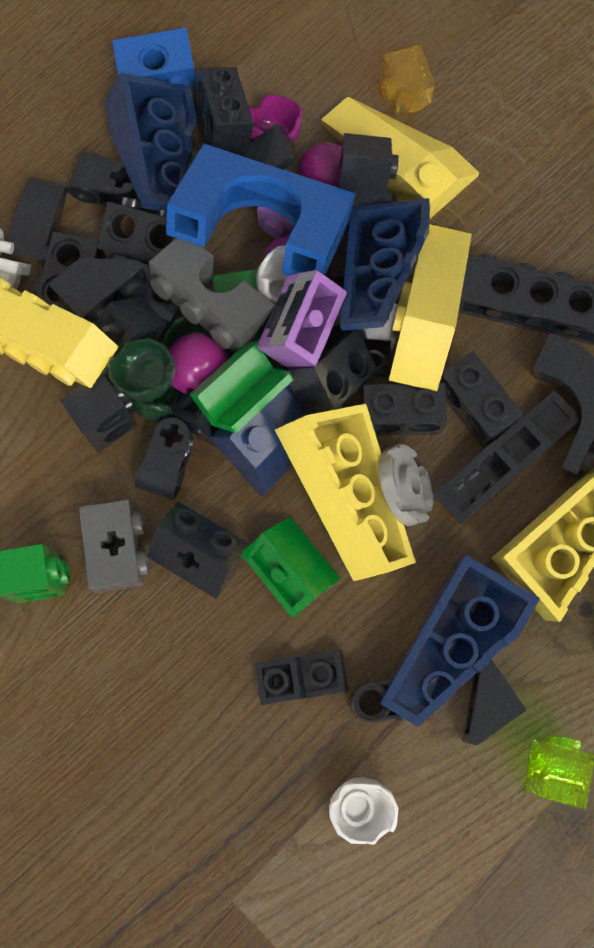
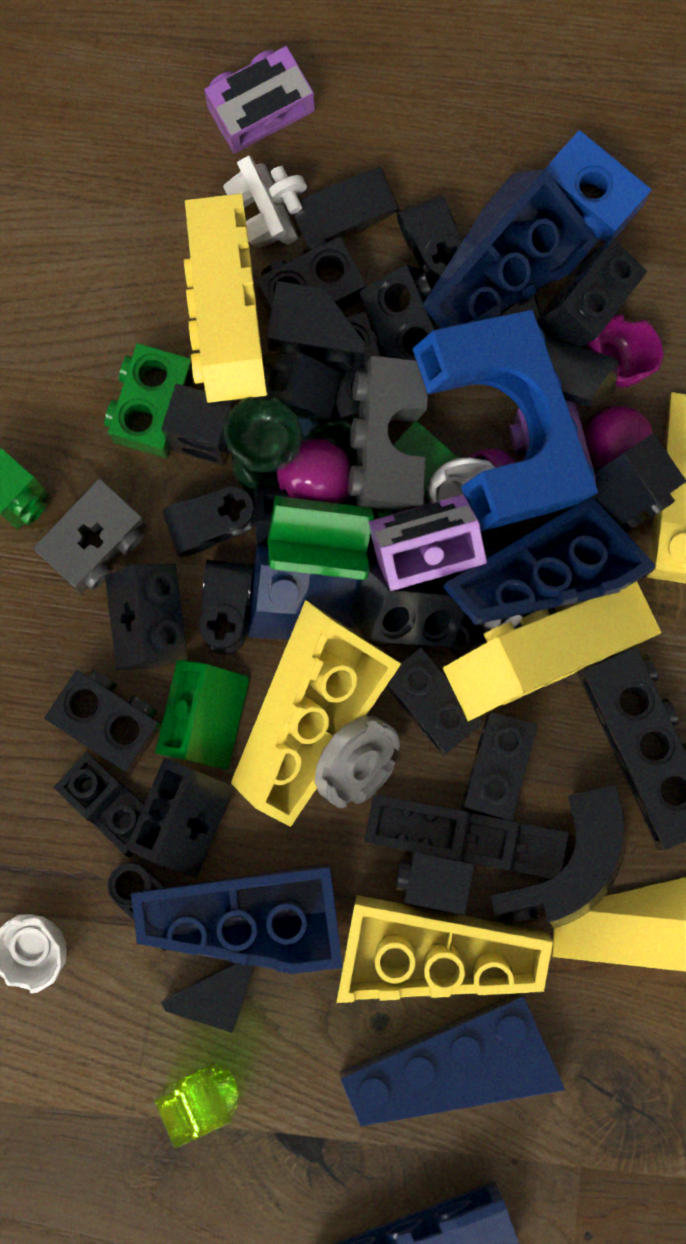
camera: 50 degrees right, 5 degrees up
(58, 434) = (139, 398): none -> green brick
(228, 488) = (226, 597): none -> black piece
(246, 644) = (99, 729): none -> black brick
(351, 632) = (180, 818): none -> black brick
(526, 494) = (435, 882): none -> black brick

